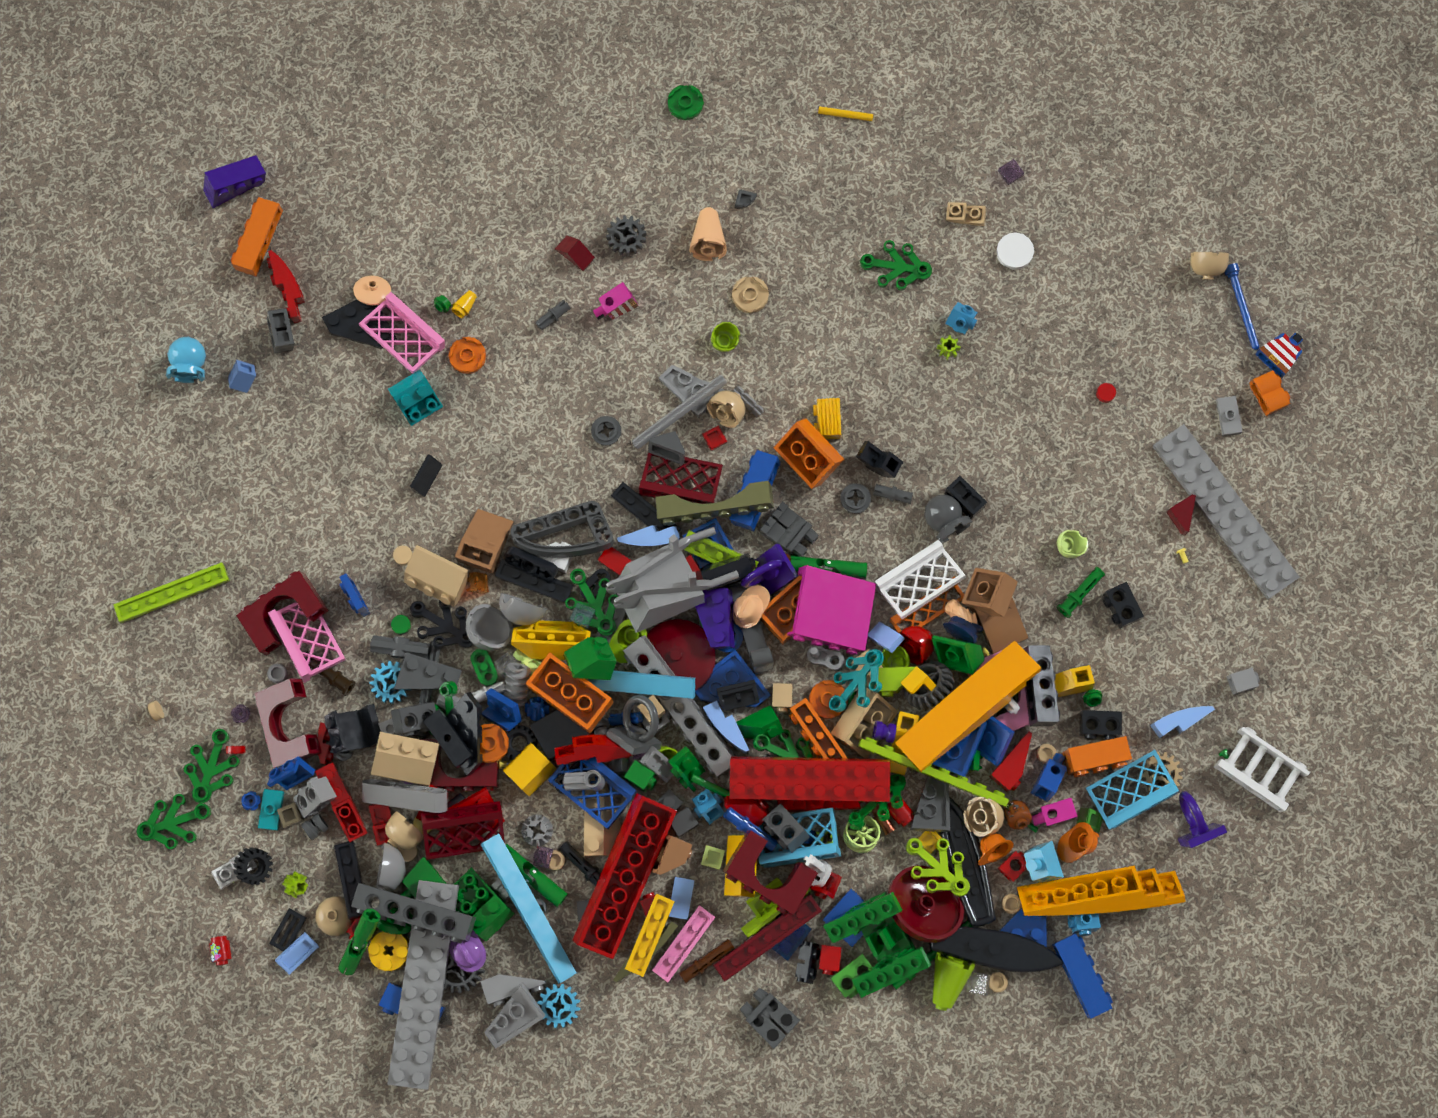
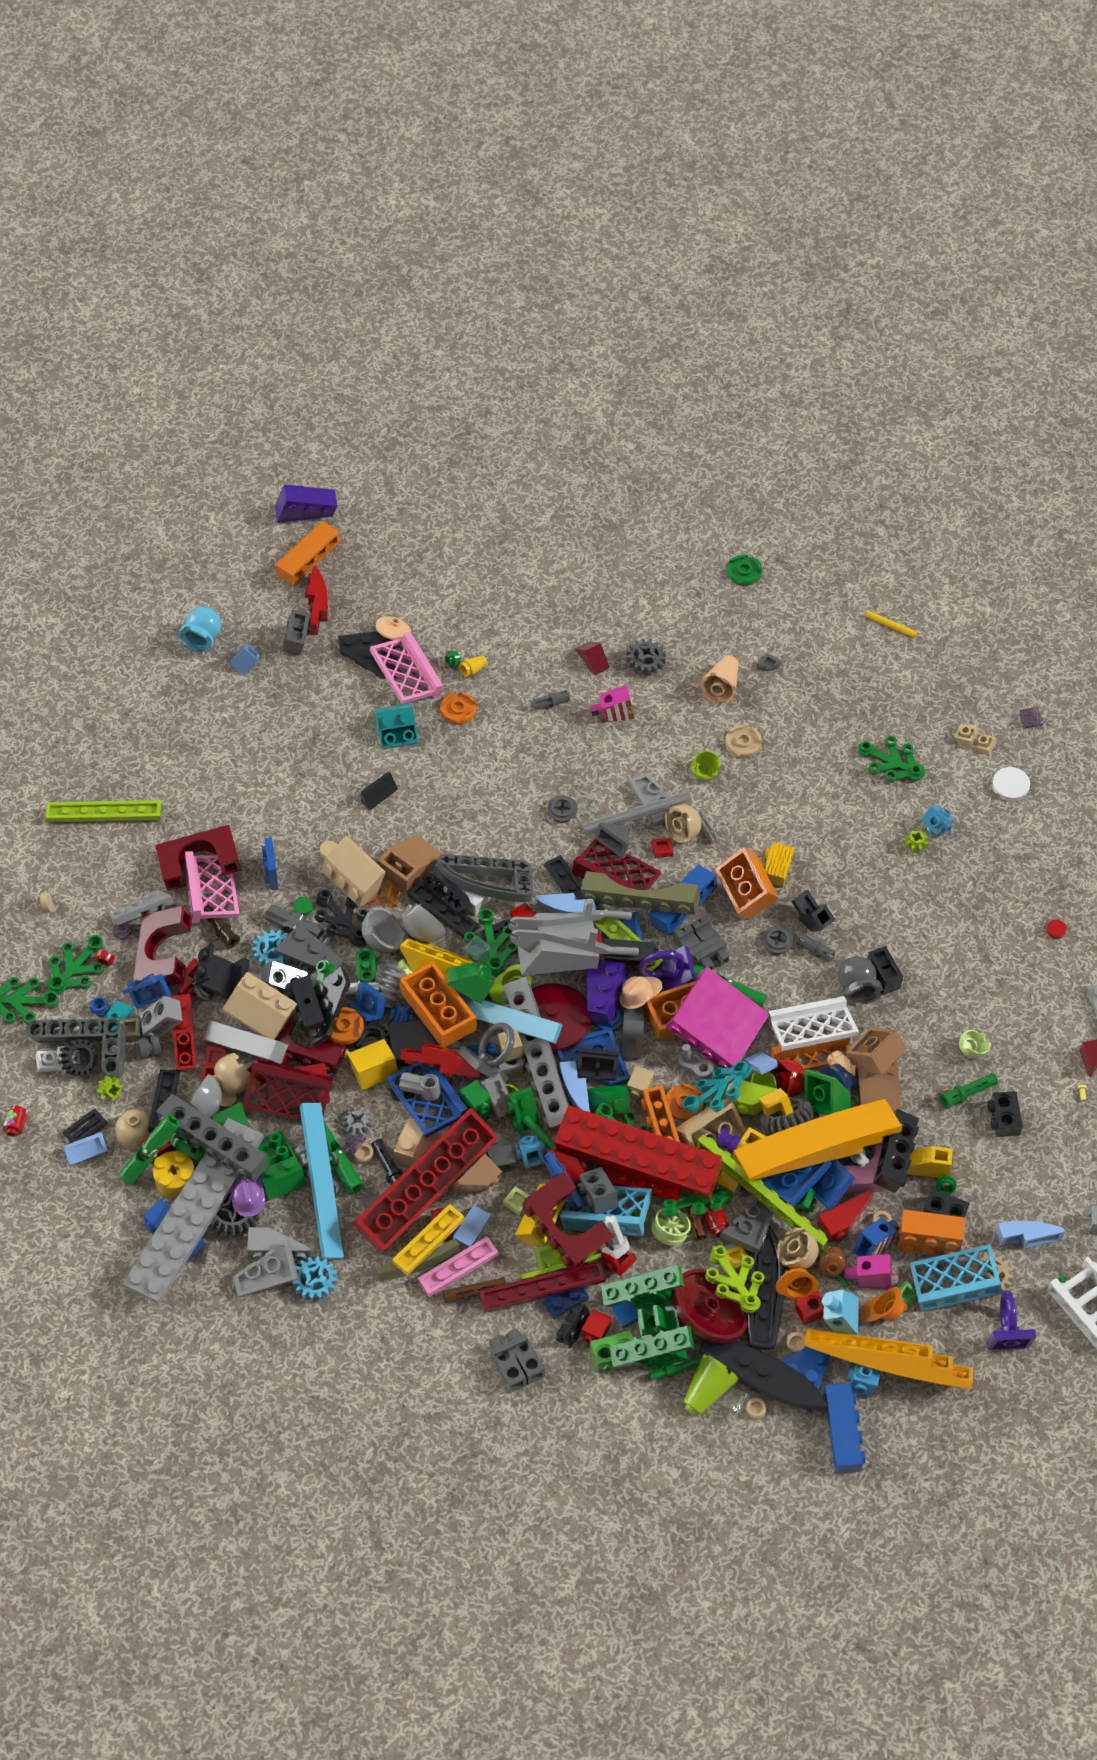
camera: 15 degrees right, 20 degrees down
(250, 838) = (85, 1033): none -> dark grey beam
(254, 679) = (139, 905): none -> light grey wing

